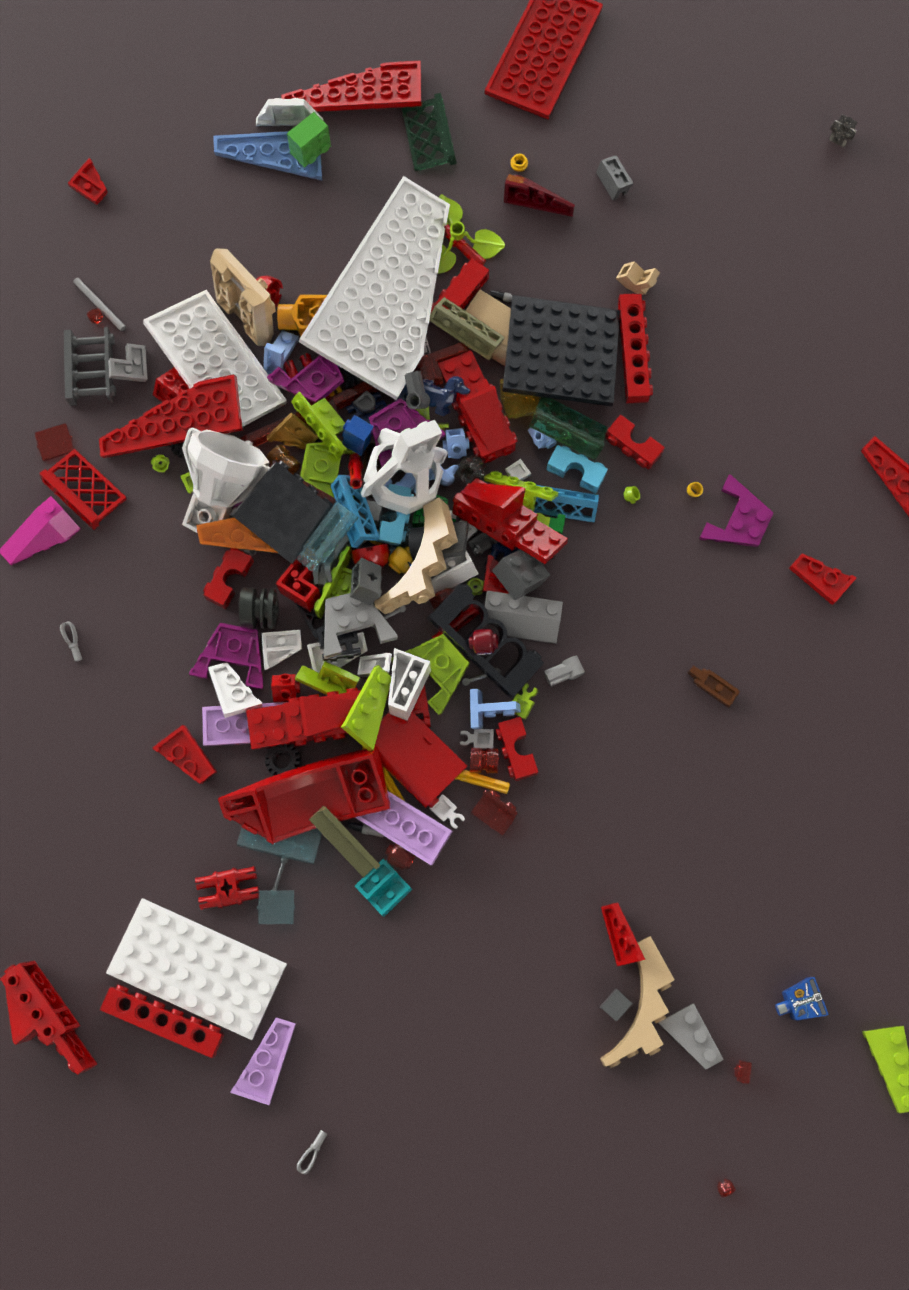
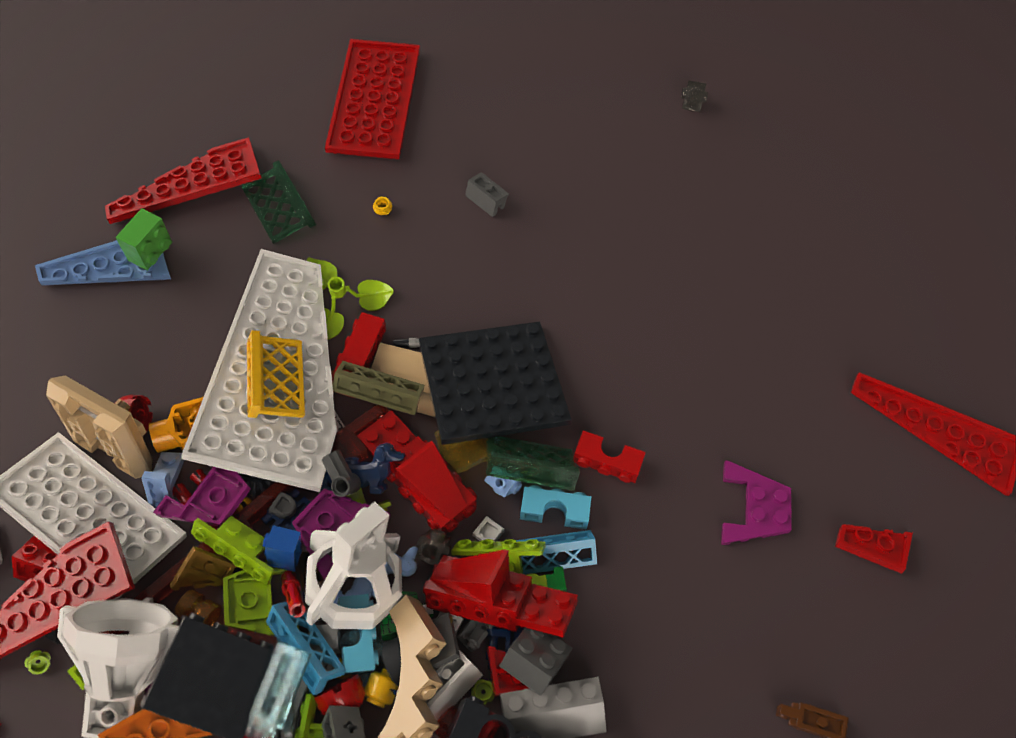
camera: 20 degrees left, 15 degrees down
(284, 112) = (108, 221): white wing -> none
(371, 293) = (256, 376): none -> yellow fence
(456, 443) = (405, 521): light blue brick -> none
(464, 247) = (348, 303): red pin -> none
(529, 194) = (400, 233): dark red wedge -> none
(631, 494) = (628, 517): lime plate -> none
(634, 392) = (586, 402): red brick -> none
(637, 279) = (547, 285): tan brick -> none
(697, 487) = (696, 486): yellow hinge -> none

